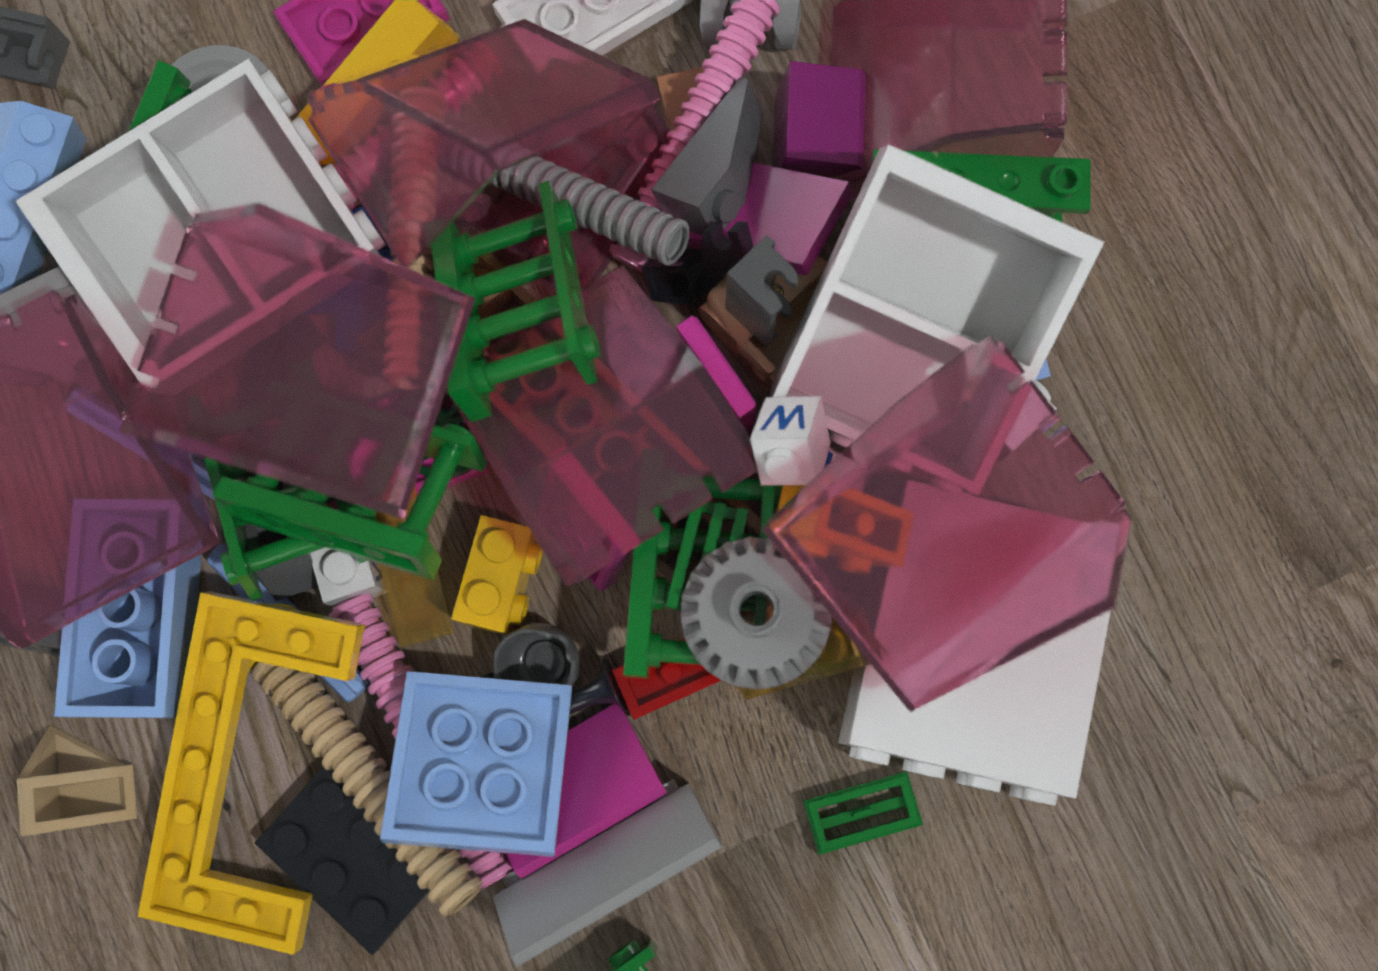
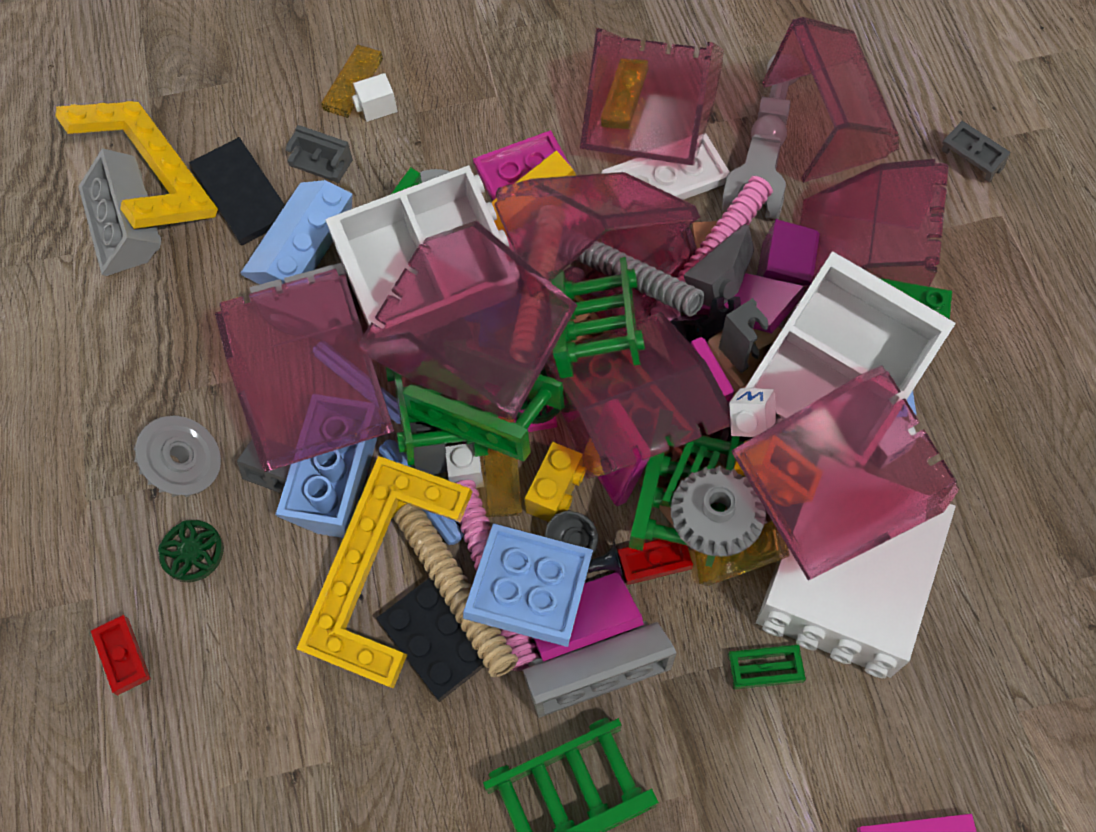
camera: 10 degrees right, 15 degrees down
(72, 786) = (273, 568): tan slope -> none

